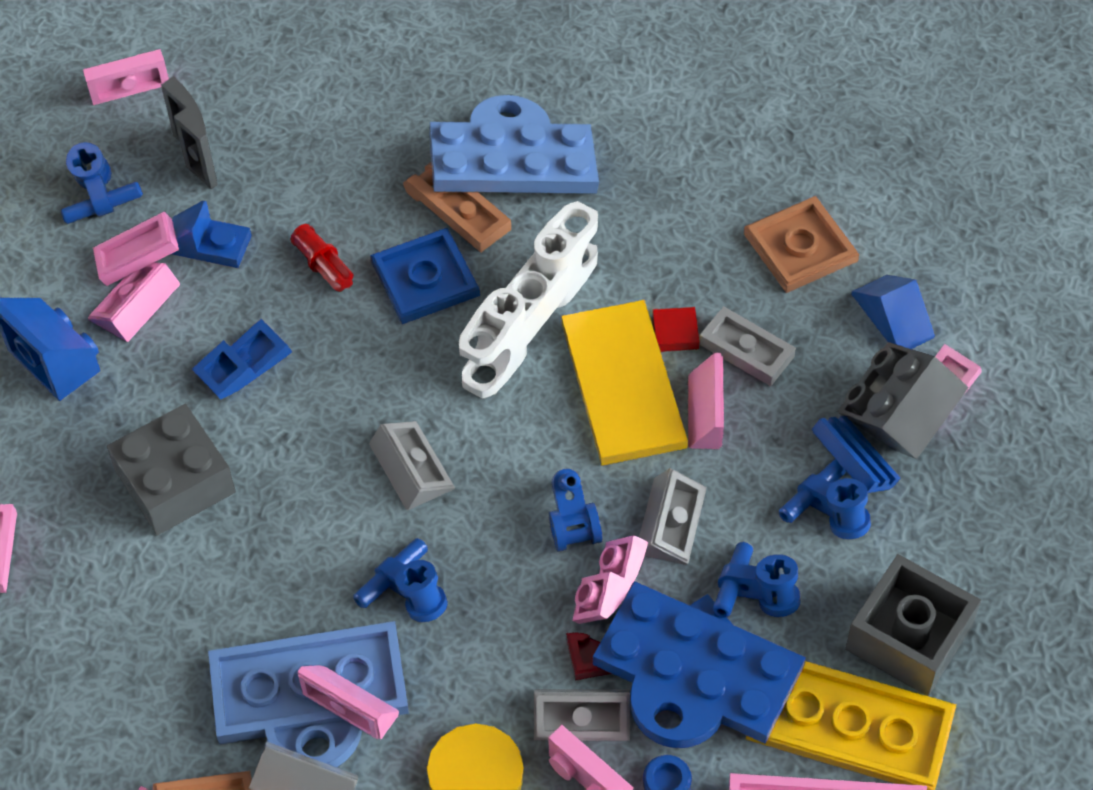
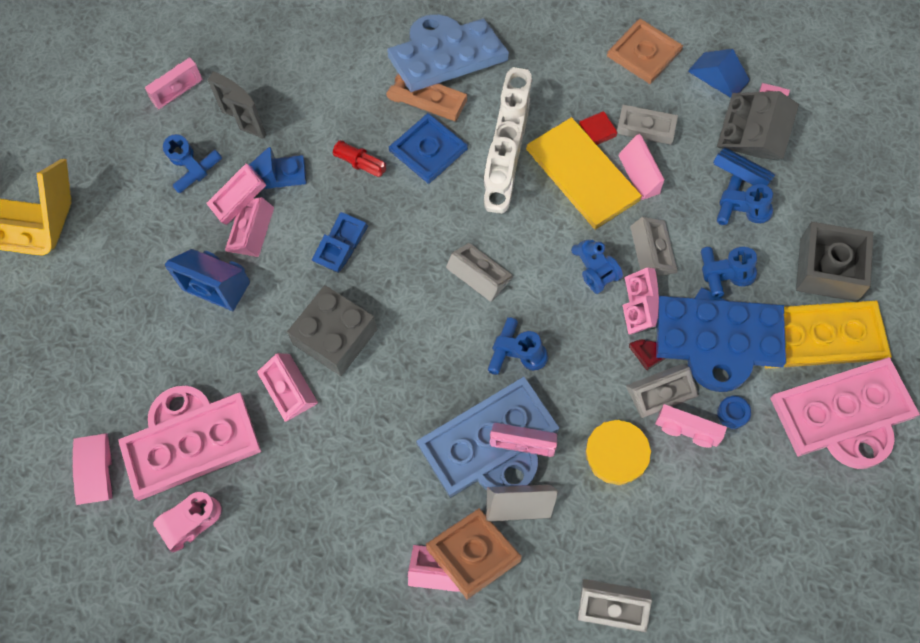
camera: 20 degrees left, 10 degrees up
(80, 521) = (286, 386): none -> bright pink slope

